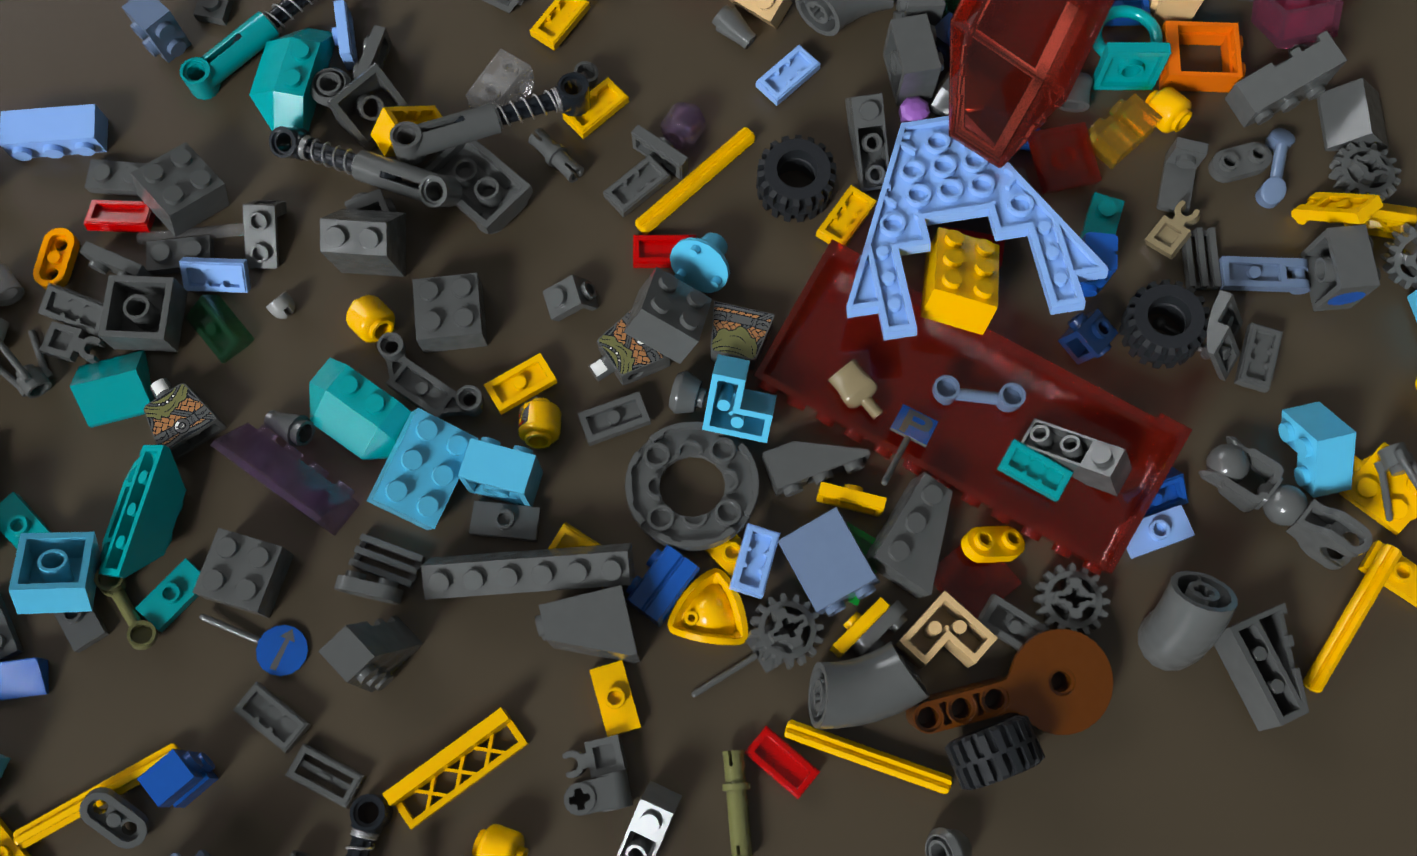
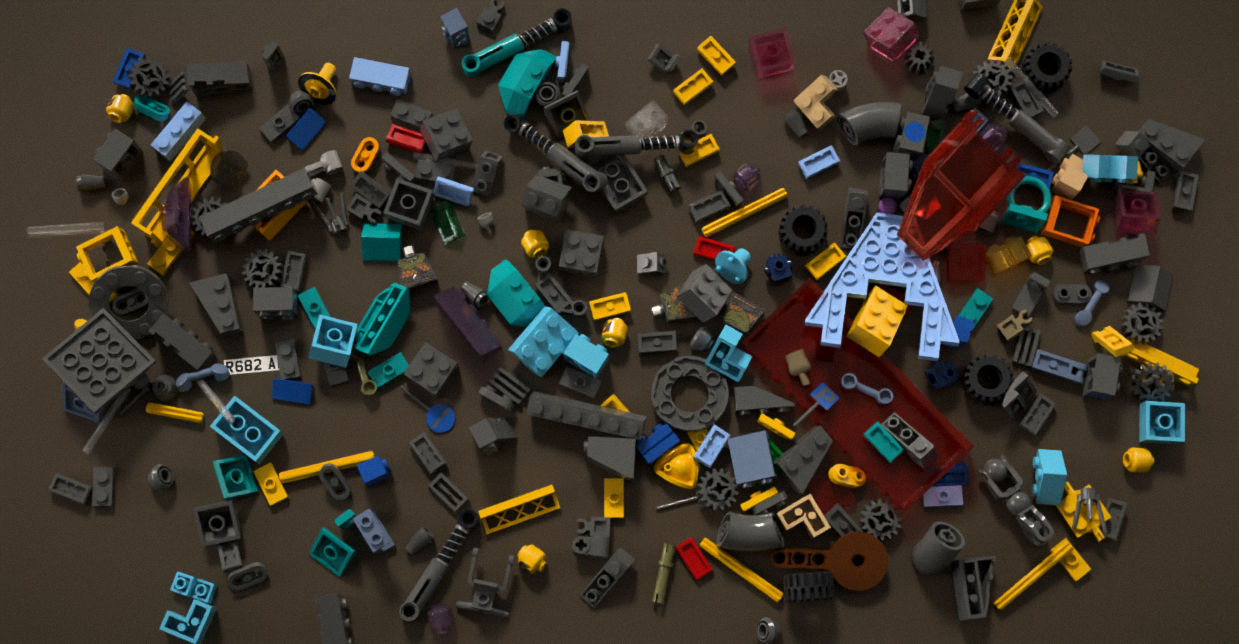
camera: 15 degrees right, 5 degrees up
(776, 248) = (778, 275): none -> dark blue brick

